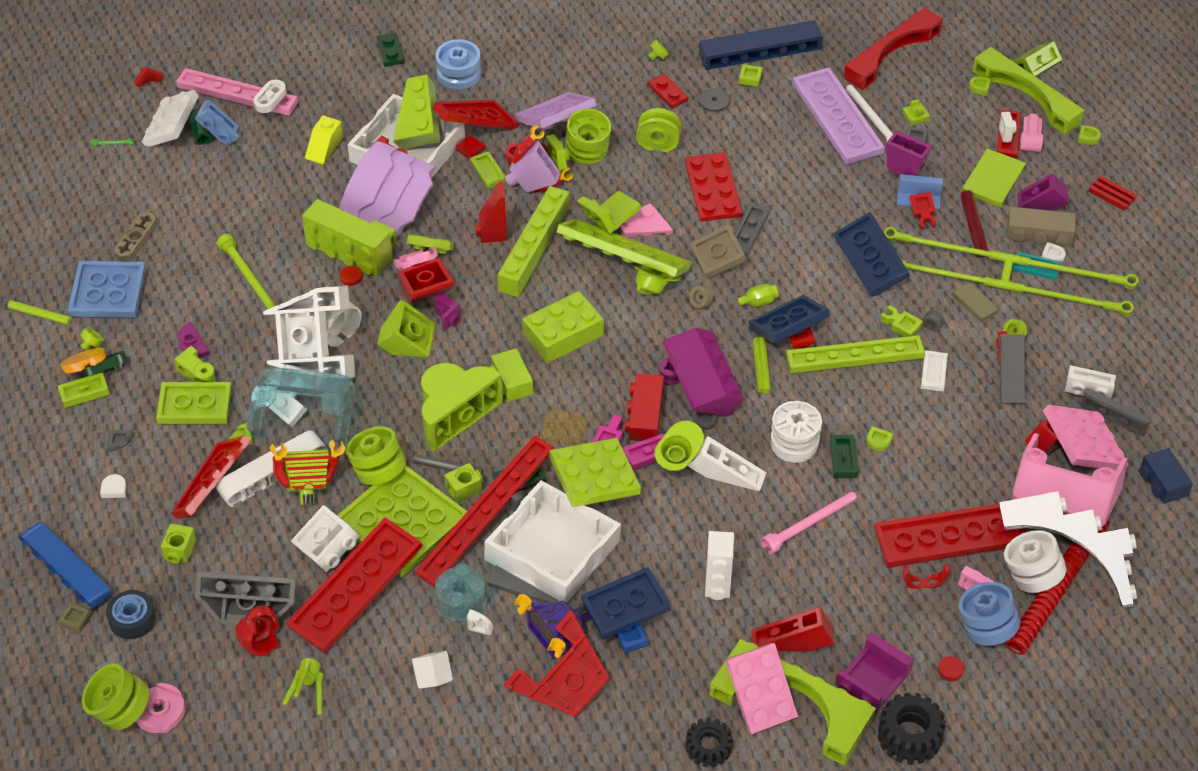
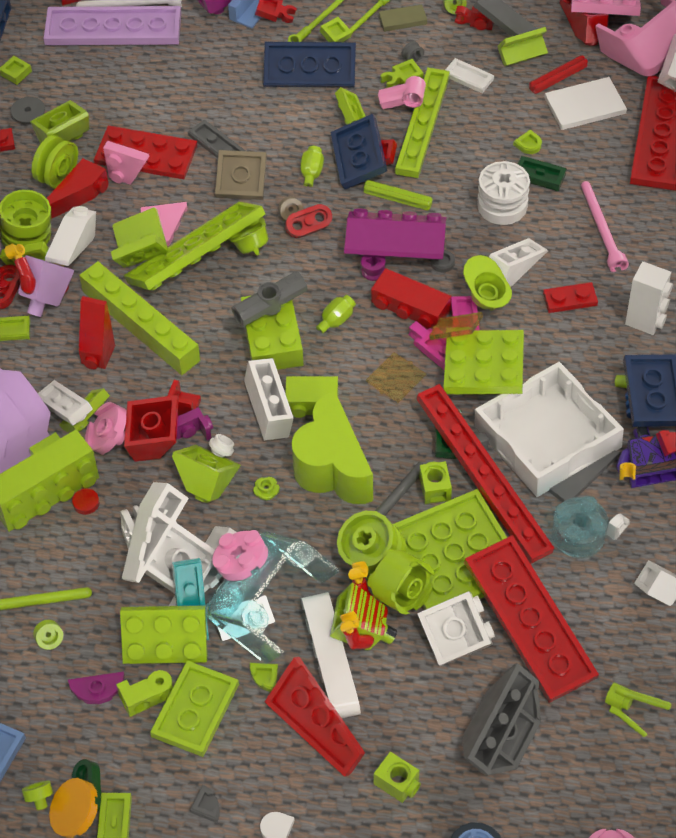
camera: 65 degrees left, 5 degrees up
(222, 295) = (48, 634): none -> lime tile
(243, 358) = (164, 634): none -> lime plate
(257, 631) = (553, 733): red hair -> none
(276, 354) = (189, 583): none -> teal tile
(317, 367) = (252, 551): none -> bright pink plate
(345, 482) = (401, 581): none -> lime brick
(408, 382) = (269, 493): none -> lime plate
(425, 224) = (65, 403): none -> white plate
(437, 336) = (221, 445): none -> white plate
(467, 295) = (186, 400): none -> red panel
(498, 339) = (268, 399): none -> white brick
(575, 302) = (269, 298): none -> dark grey piece
(590, 169) = (73, 236): none -> white slope
(608, 364) = (336, 313): none -> lime plant
(622, 440) = (456, 326): none -> clear yellow piece
(646, 157) = (78, 187): none -> red slope
(678, 163) = (123, 162): none -> bright pink wing
(696, 313) = (307, 220): none -> red plate
(700, 120) = (66, 121): none -> lime slope
(711, 518) = (570, 297): none -> red plate
(839, 299) = (350, 105): none -> lime plate
(872, 328) = (406, 94): none -> bright pink piece
(916, 255) = (335, 30): none -> lime plate
(953, 466) = (585, 103): none -> white tile
(977, 435) = (558, 74): none -> red axle
(989, 397) = (523, 47): none -> lime panel

